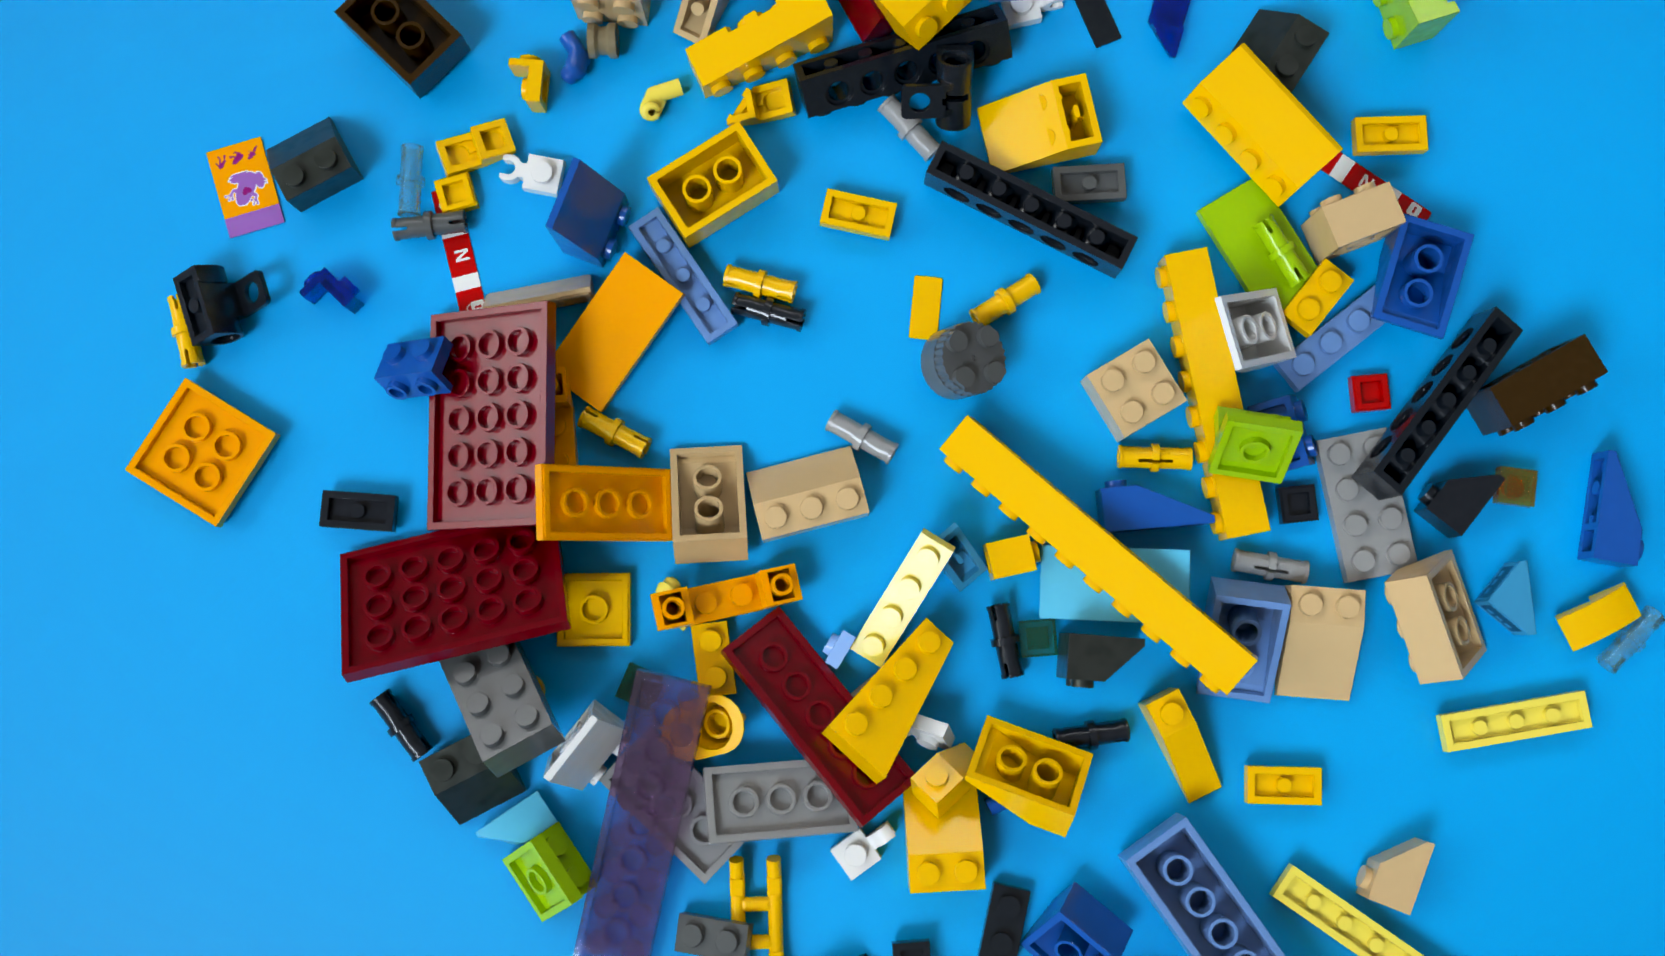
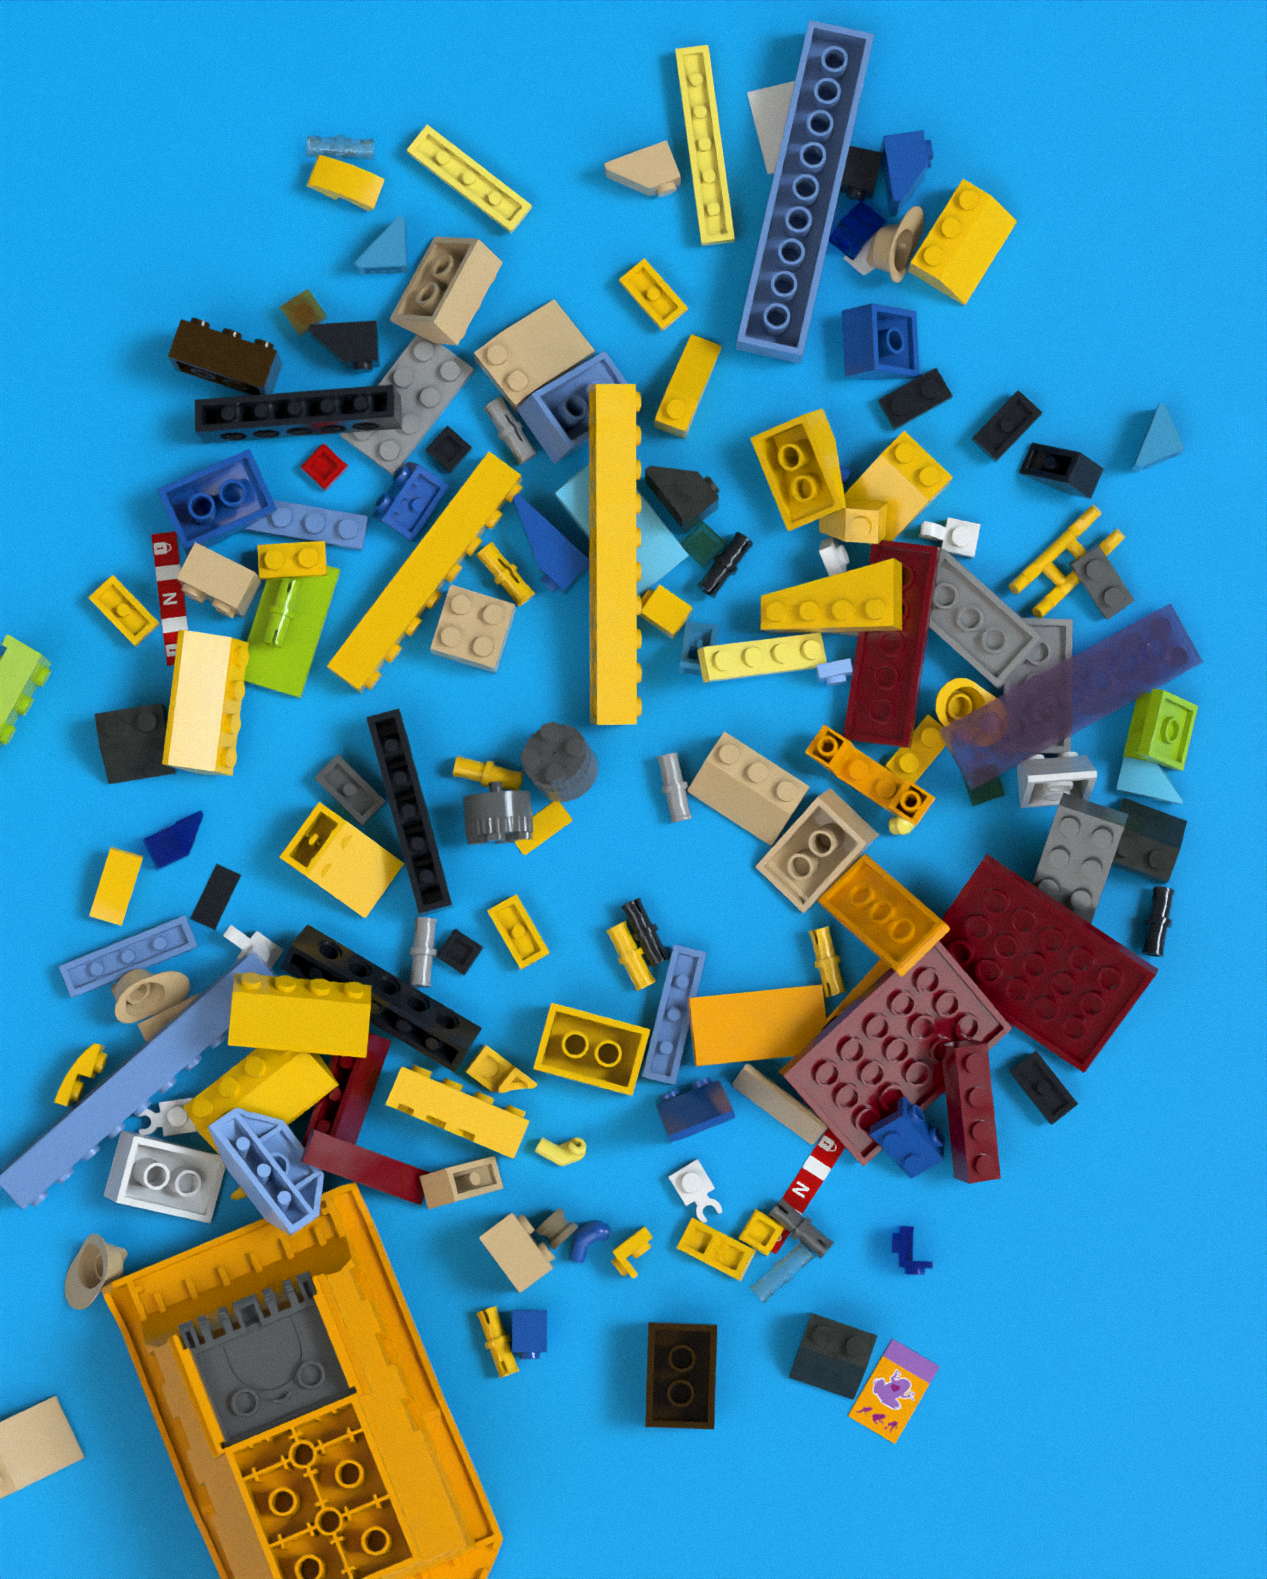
camera: 130 degrees left, 0 degrees up
(188, 354) = (1031, 1330): yellow pin -> none
(202, 452) = (1103, 1235): light orange plate -> none
(215, 306) = (994, 1323): black piece -> none
(389, 433) = (970, 1111): none -> dark red brick
(598, 610) = (955, 858): yellow tile -> none
(884, 158) = (460, 952): none -> black tile
(951, 93) = (376, 939): black piece -> none
(964, 274) = (498, 816): none -> dark grey piece
(1093, 734) = (735, 450): black pin -> none
(1253, 444) = (442, 514): lime bracket -> none
(1255, 329) = (361, 581): white slope -> none
(1610, 521) = (272, 227): blue slope -> none

